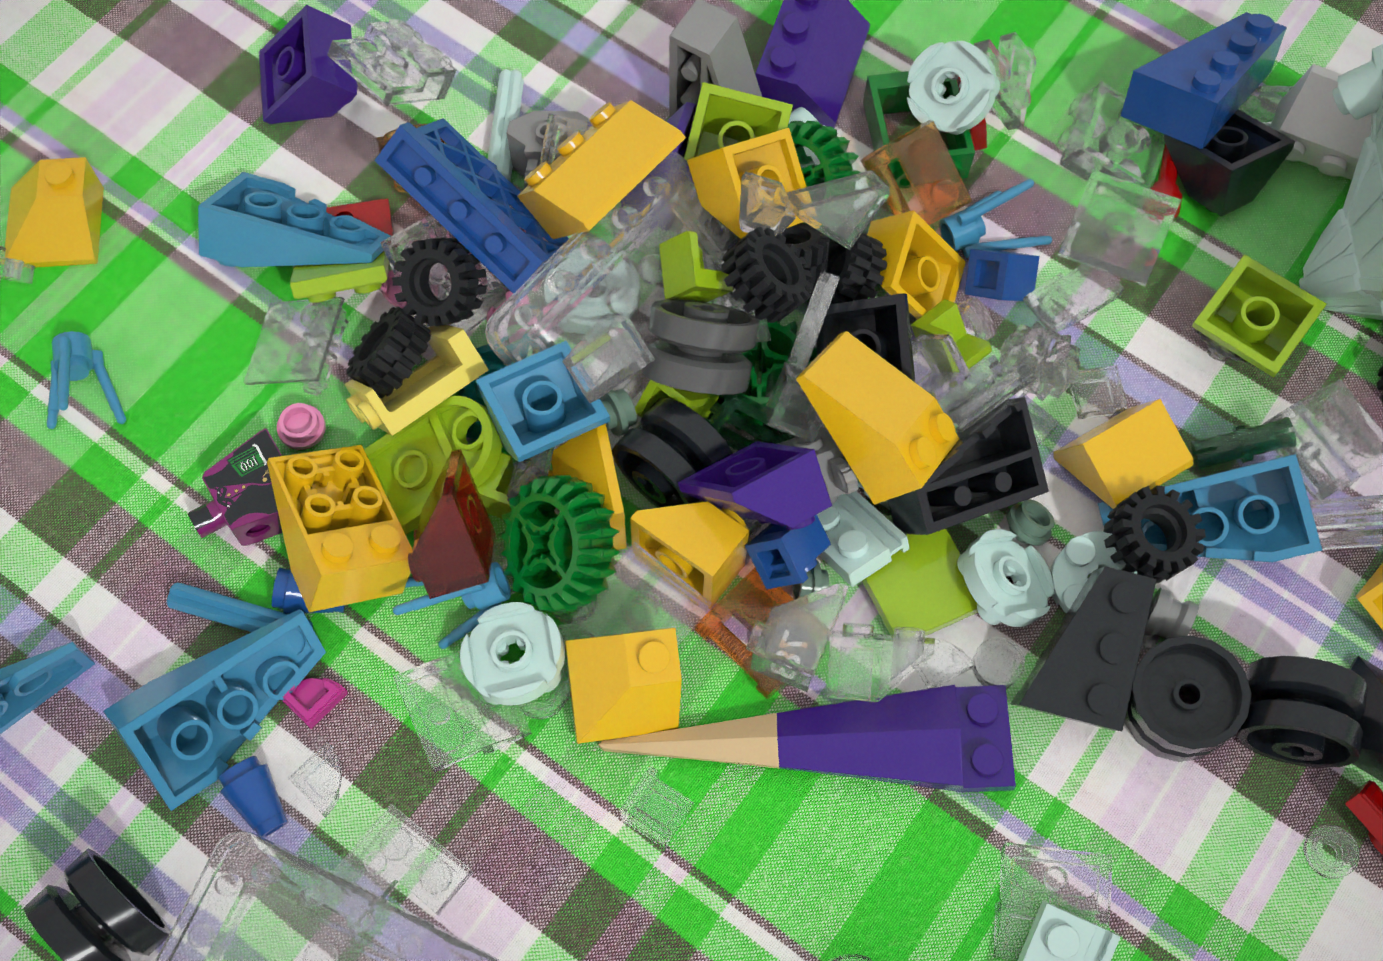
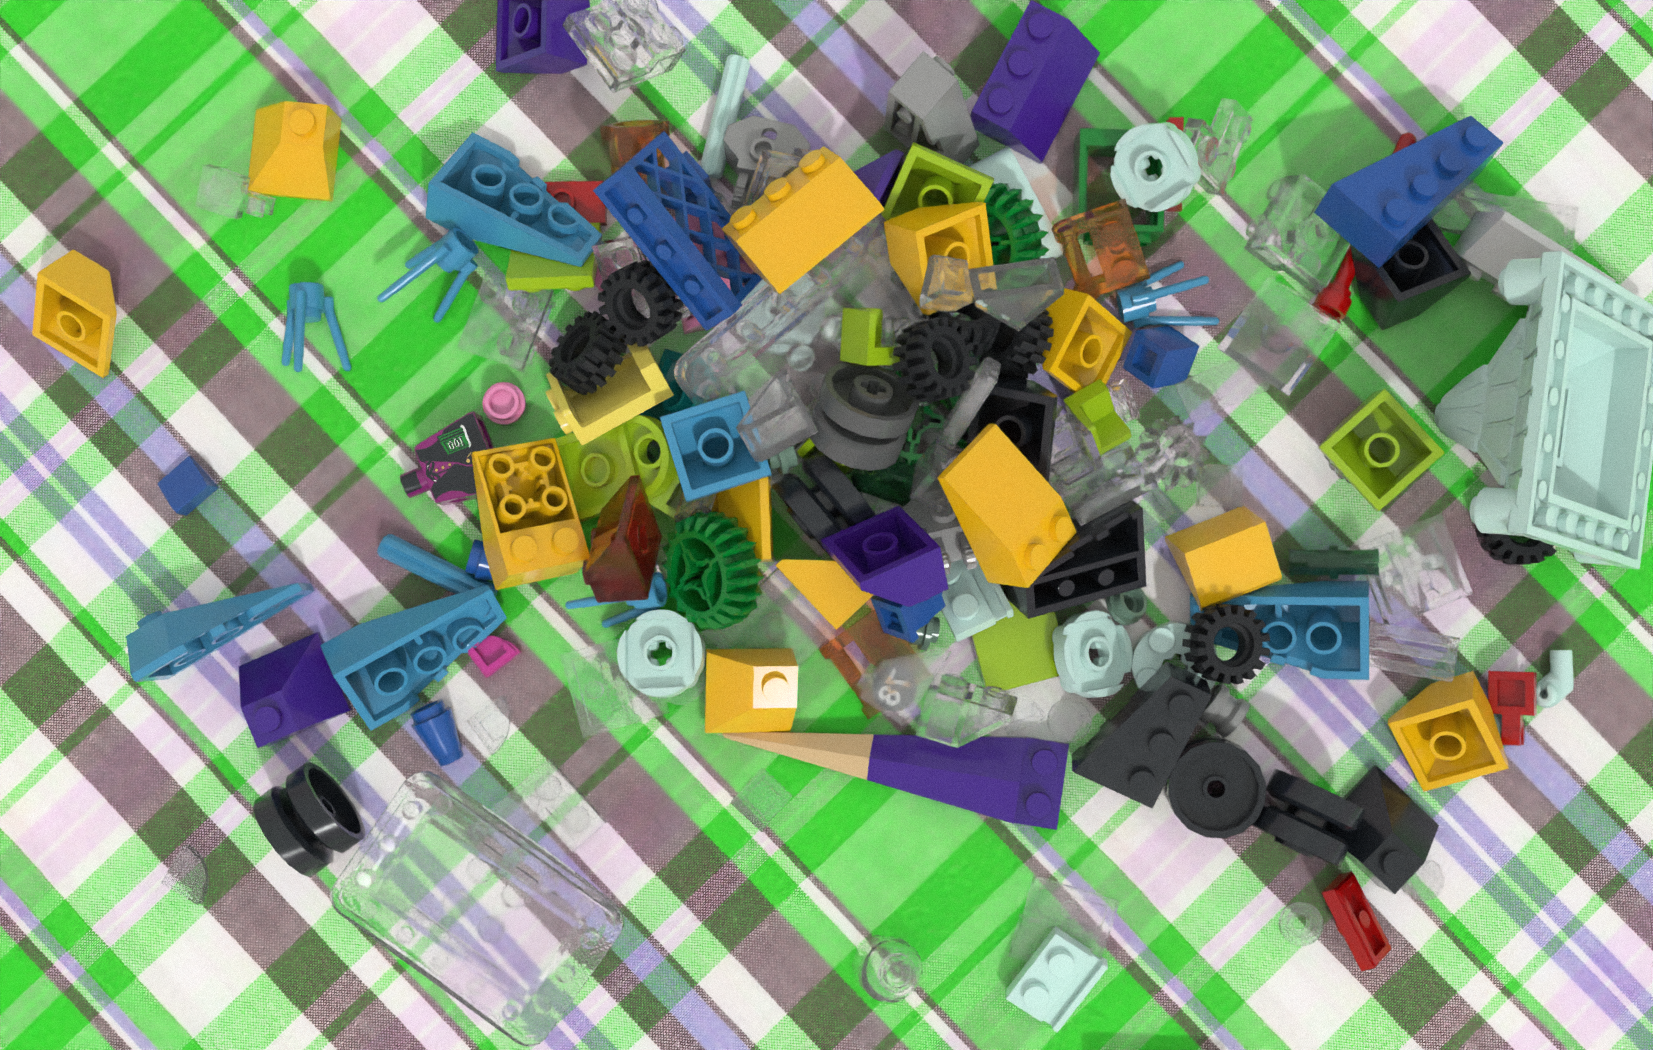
camera: 10 degrees right, 20 degrees up
(71, 782) = (289, 691): none -> dark purple slope
(228, 277) = (450, 253): none -> dark azure plant

